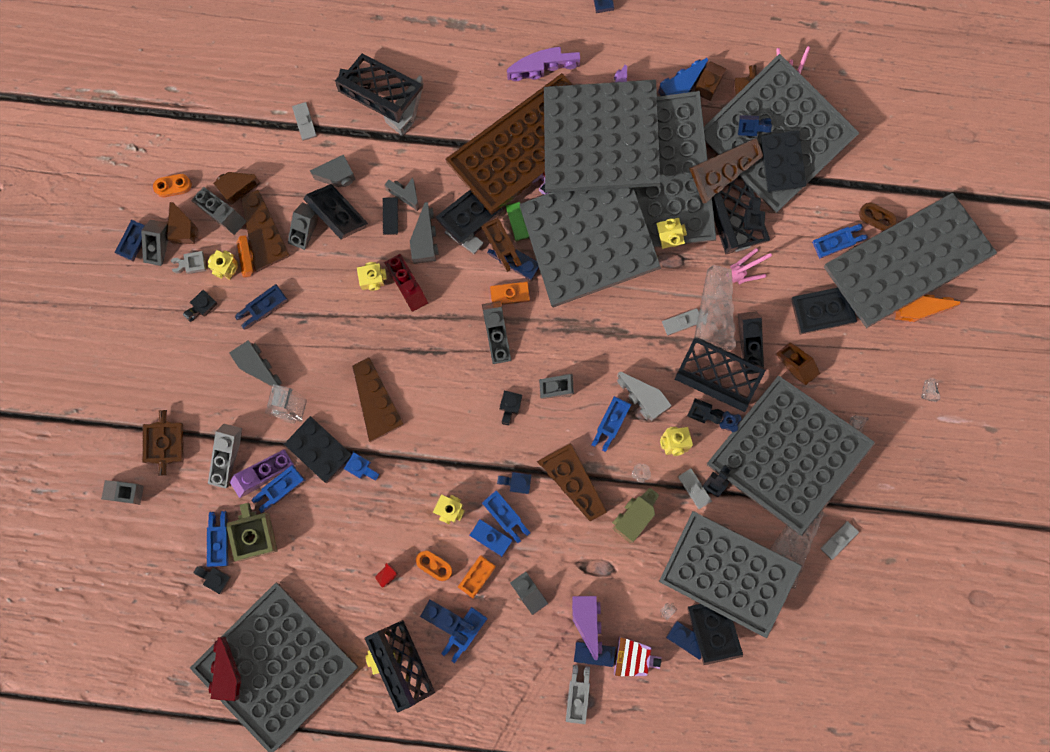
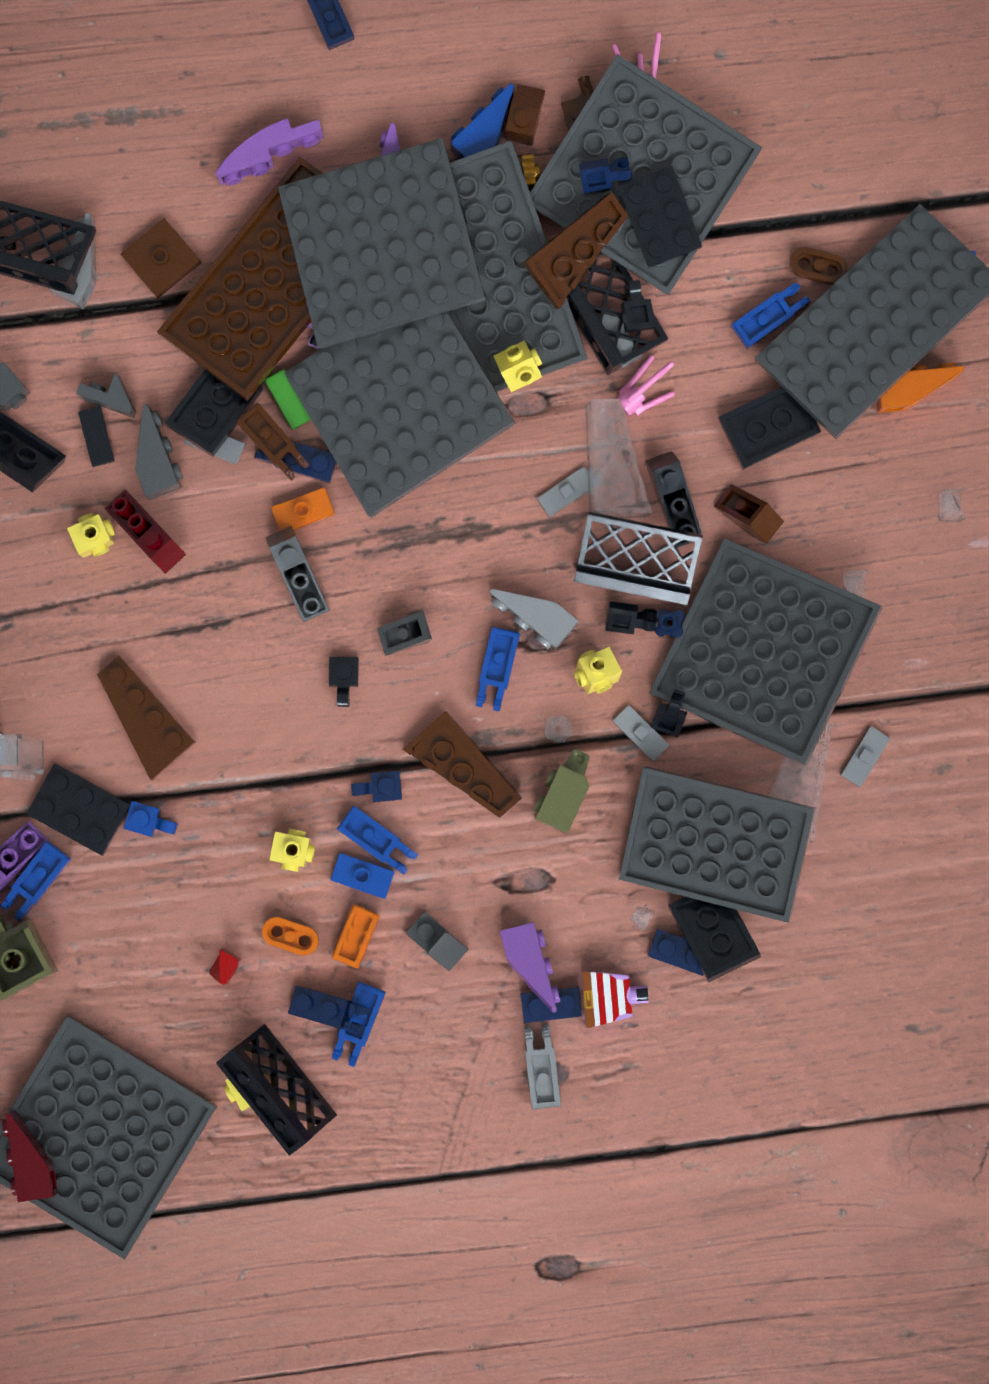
camera: 15 degrees left, 5 degrees up
(459, 115) = (161, 258): none -> reddish brown plate
(706, 114) = (530, 170): none -> pearl gold plate

